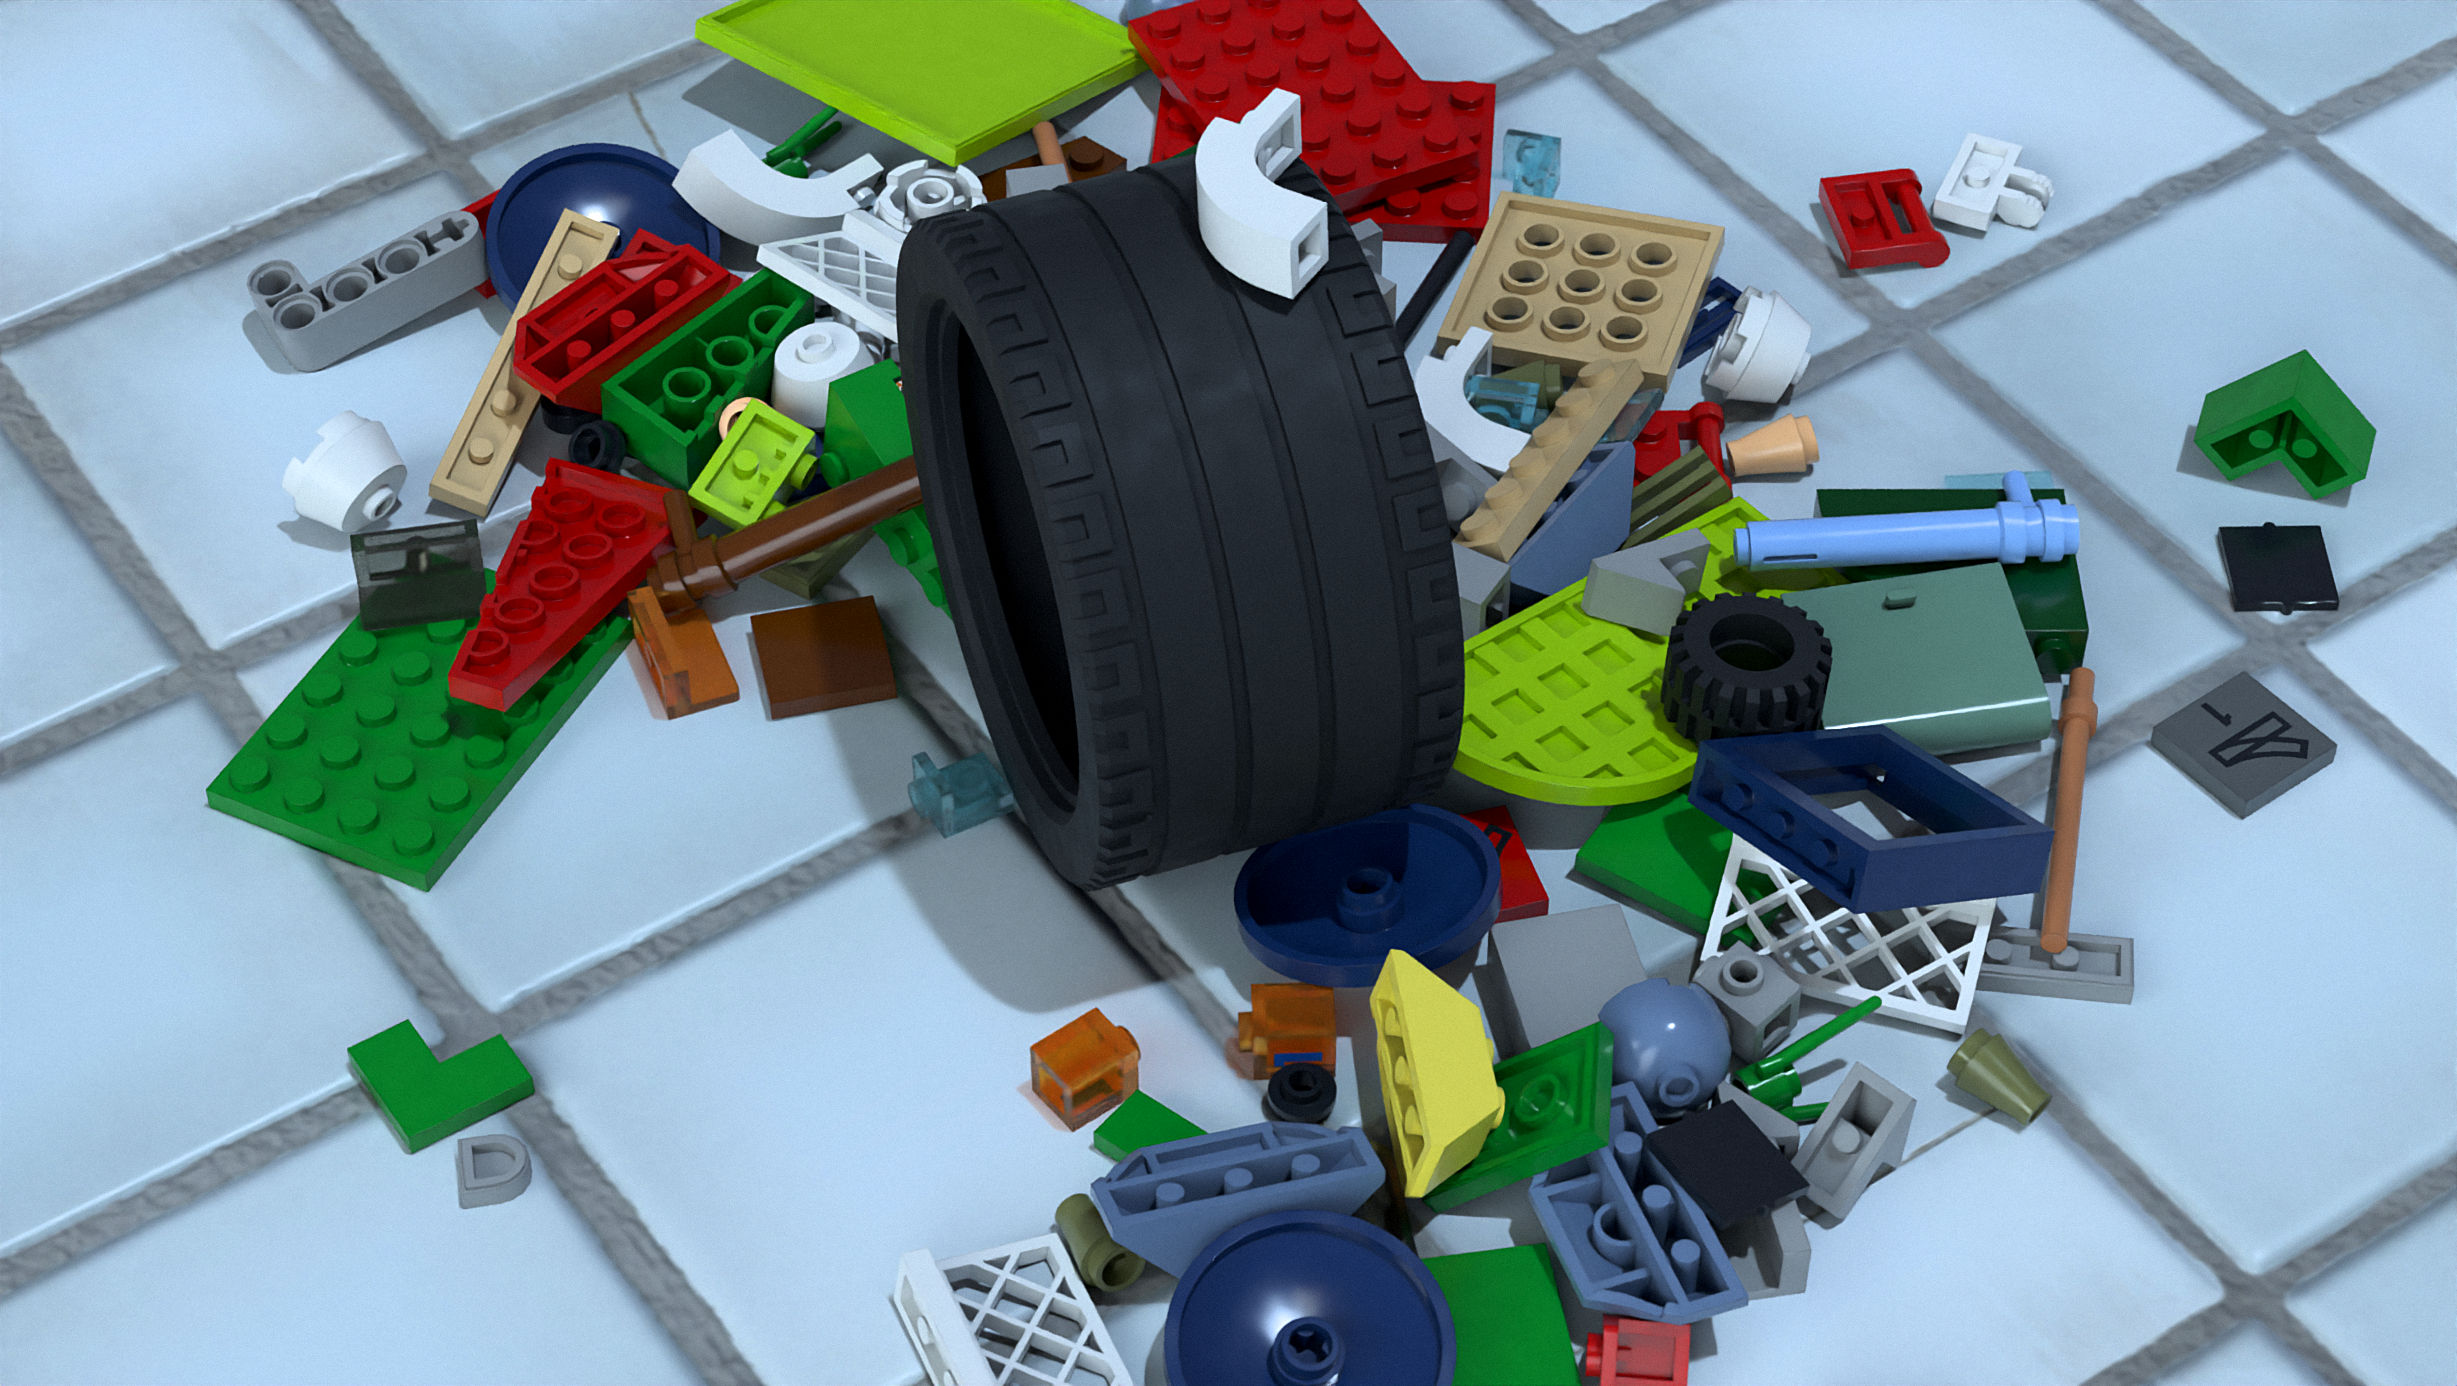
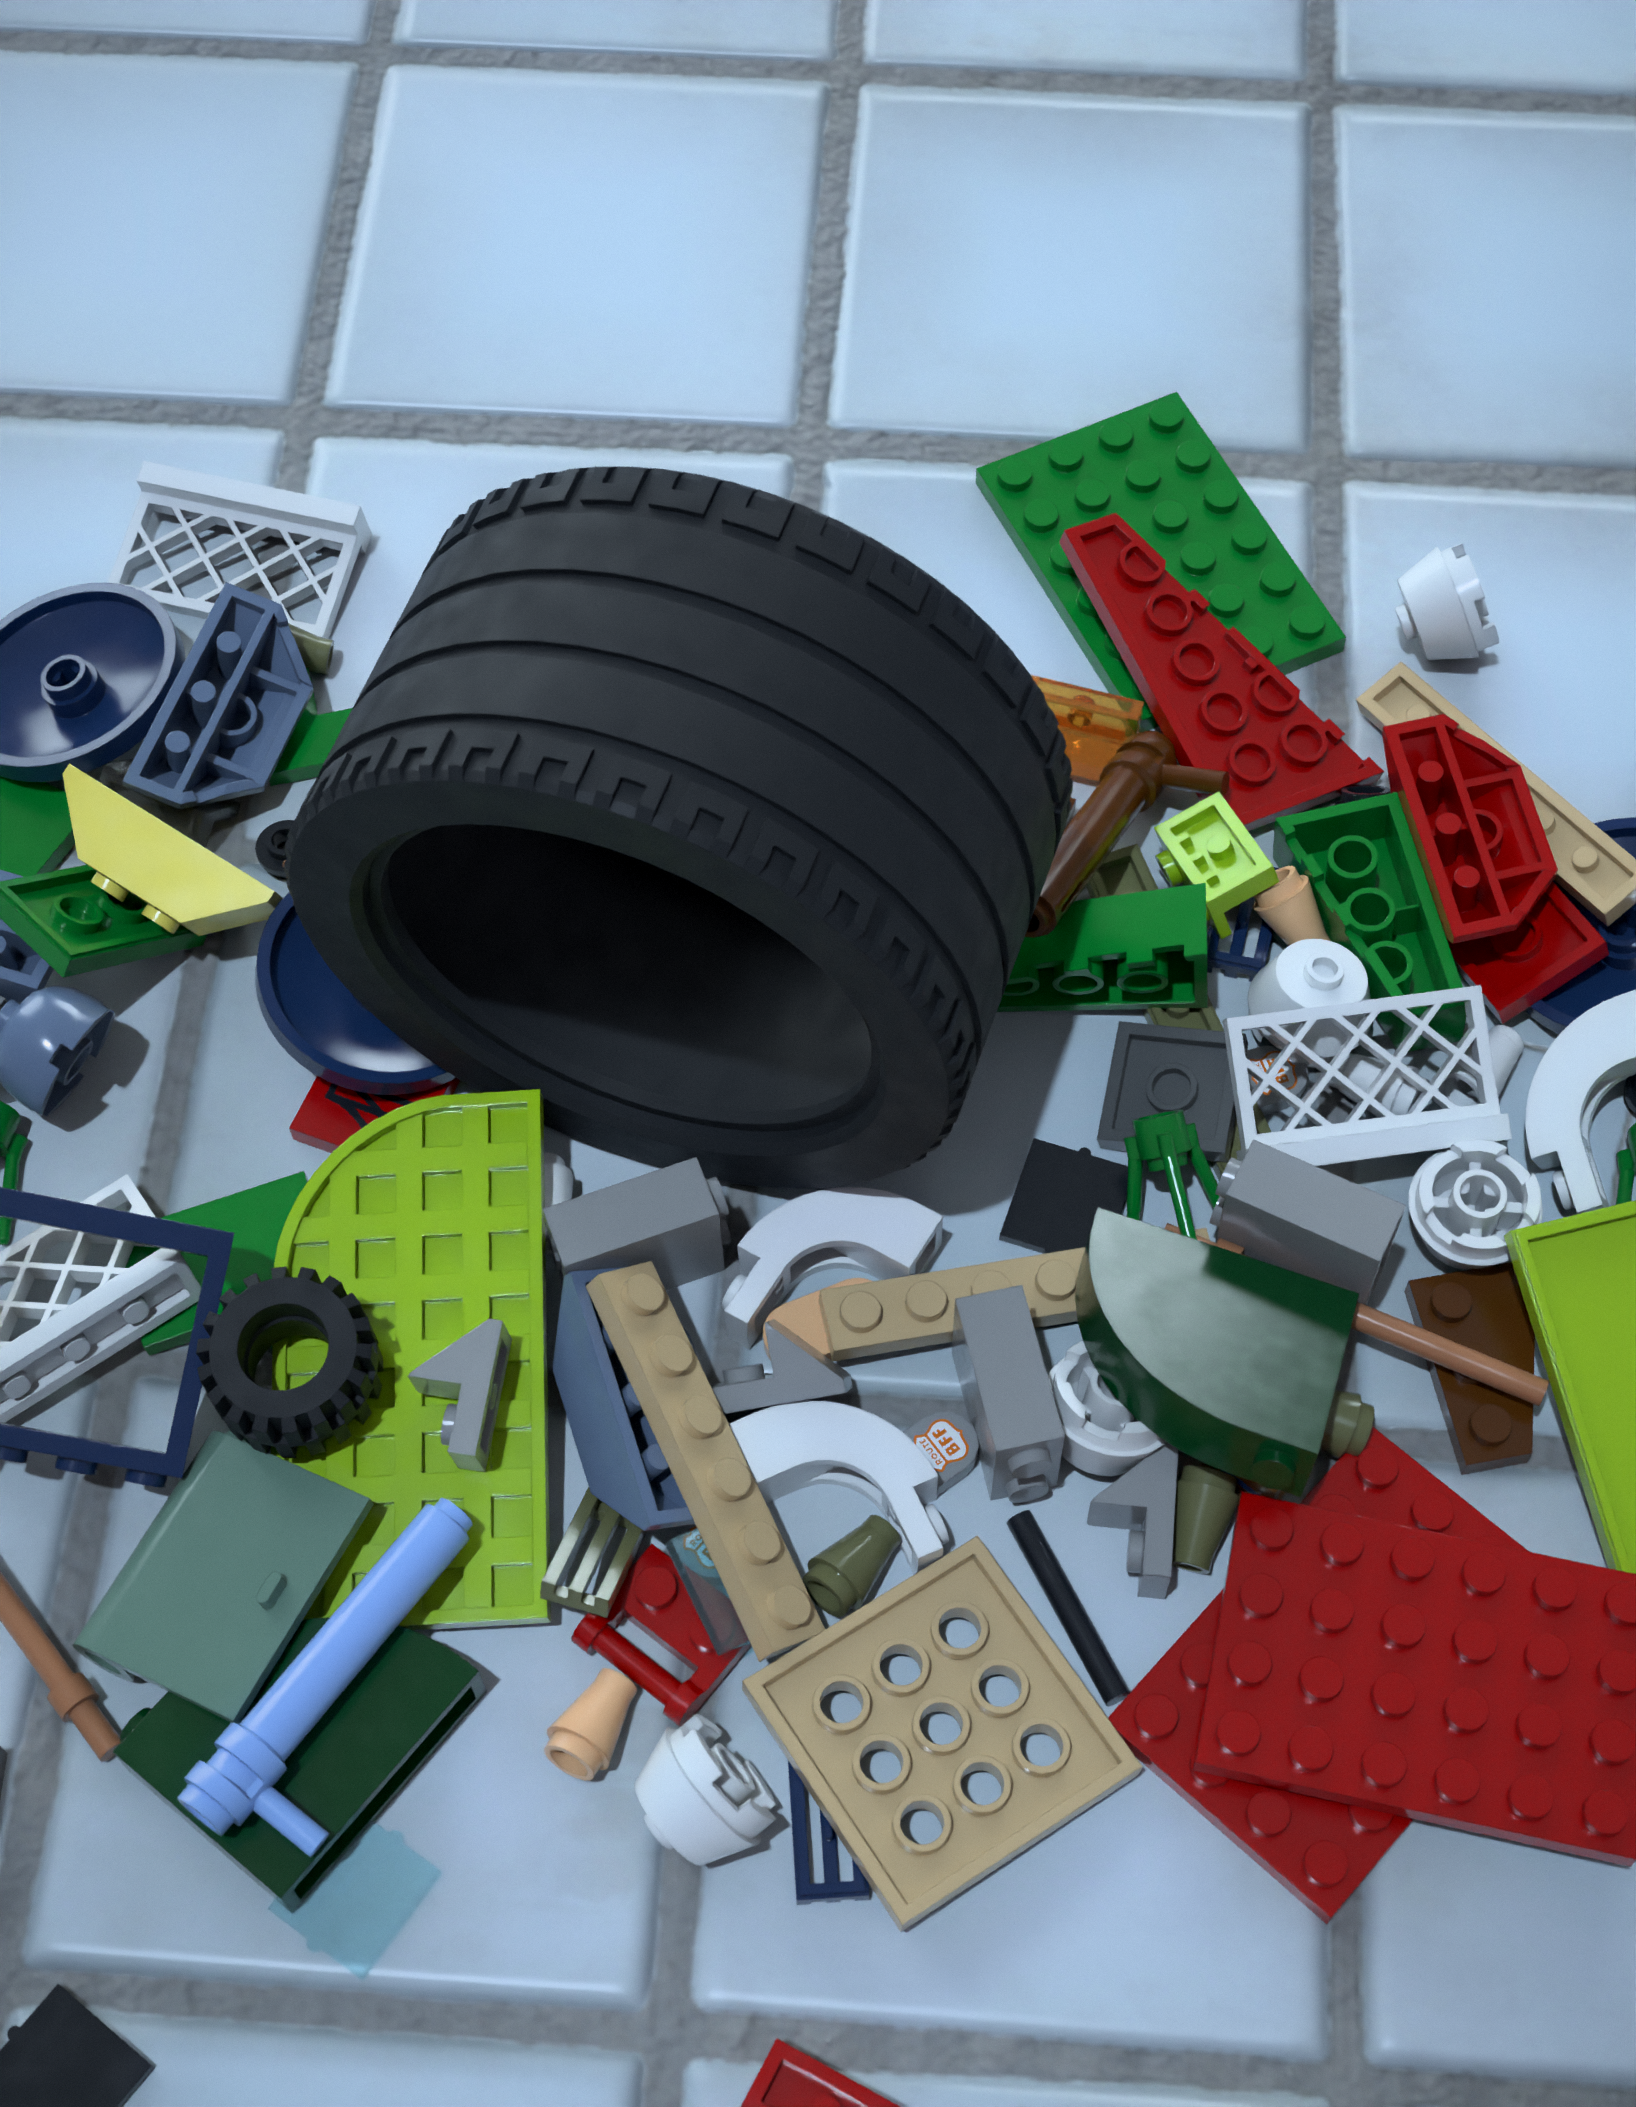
camera: 130 degrees right, 15 degrees up
(419, 574) = (1275, 588): clear smoke panel -> none
(435, 1098) = (777, 380): green tile -> none
(493, 1169) = (683, 386): light grey tile -> none
(1246, 219) = (637, 676): white arch -> none
(1506, 402) = (833, 1515): clear light blue bracket -> none
(1532, 162) = (1139, 1824): clear light blue bracket -> none
(1559, 971) = (183, 1066): light grey brick -> none
(1753, 997) = (56, 1156): light grey brick -> none

